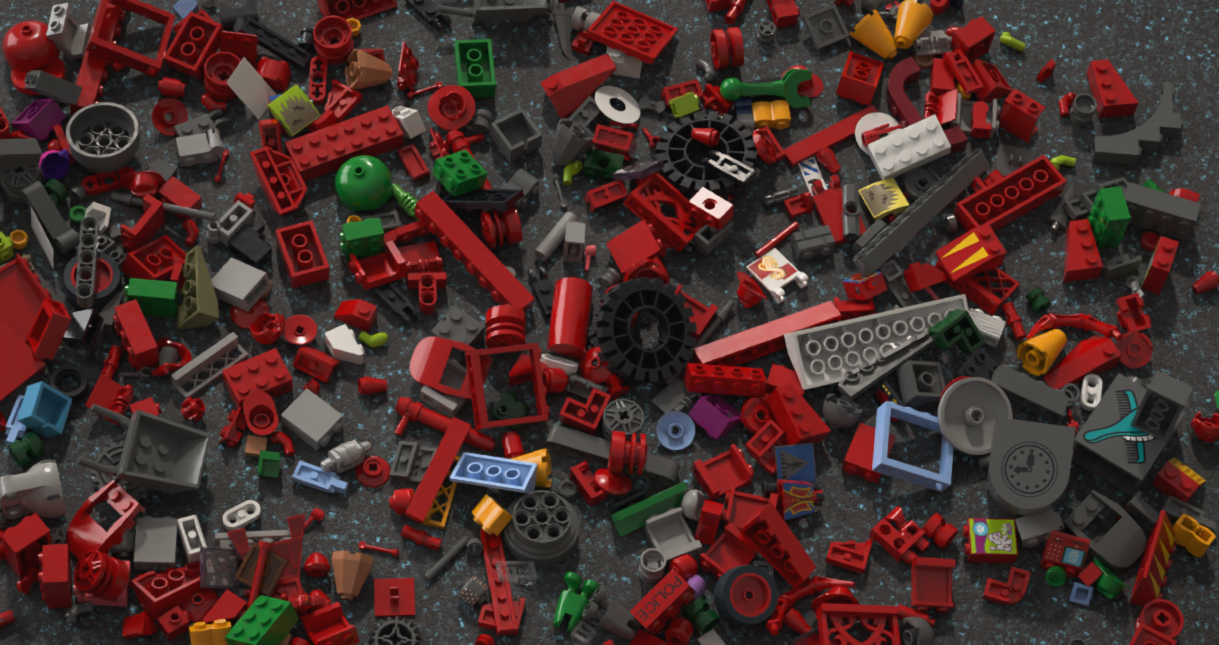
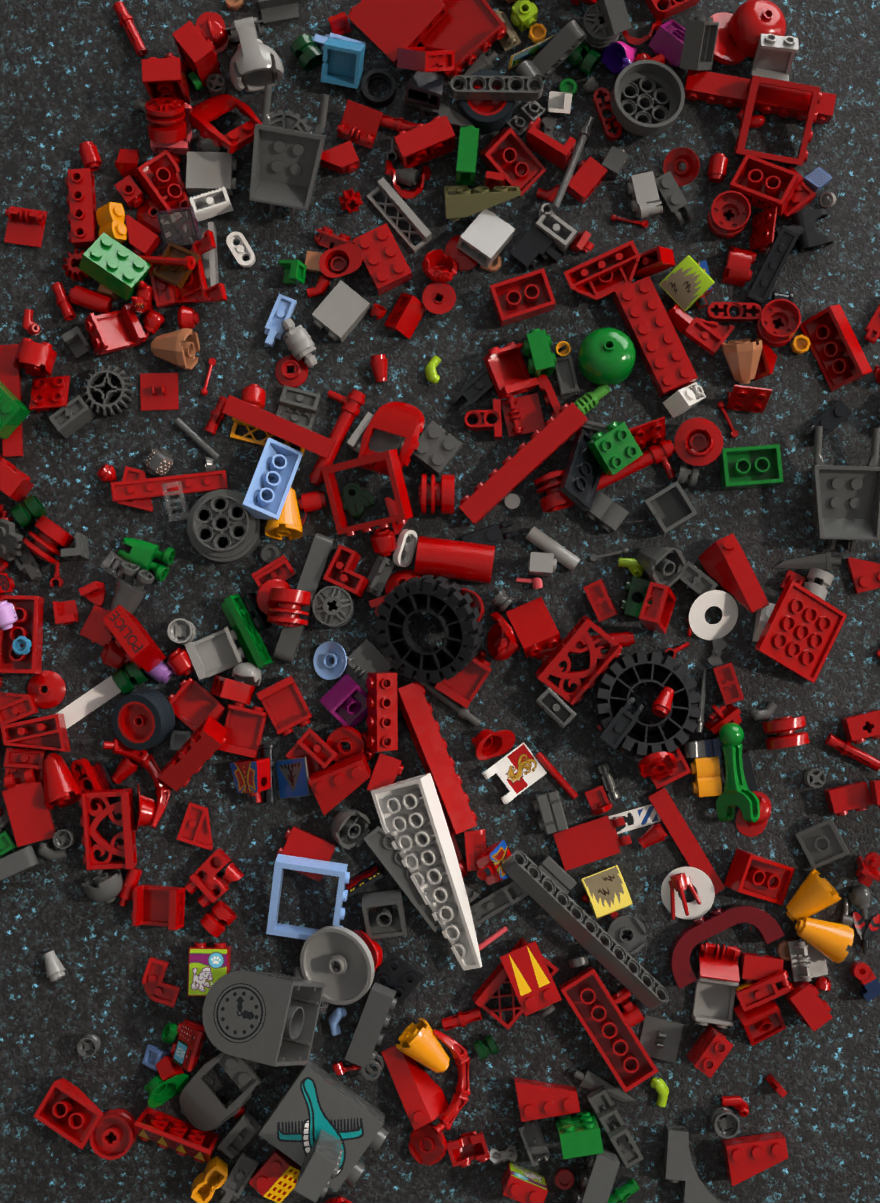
camera: 100 degrees right, 25 degrees up
(142, 182) = (594, 143): red piece -> none
(210, 104) = (700, 207): red arm -> none
(250, 88) = (714, 241): white sticker -> none
(316, 514) = (242, 318): red hand -> none
(343, 345) = (424, 338): white slope -> none
(357, 314) = (458, 352): red slope -> none
(413, 162) = (638, 407): red tile -> none
(491, 515) = (232, 478): light orange brick -> none
(638, 170) = (623, 631): tile -> none
(684, 104) = (710, 683): lime brick -> none
(711, 209) = (584, 697): brick -> none
(850, 221) = (598, 854): dark grey piece -> none
(909, 148) = (662, 922): white brick -> none
(923, 276) = (506, 924): red slope -> none
(957, 329) = (438, 953): dark green brick -> none
(978, 124) = (705, 1002): red leg -> none
(989, 326) = (453, 985): white brick -> none
(1007, 40) = (813, 1050): lime arm -> none
(1089, 393) = (378, 1095): white plate -> none

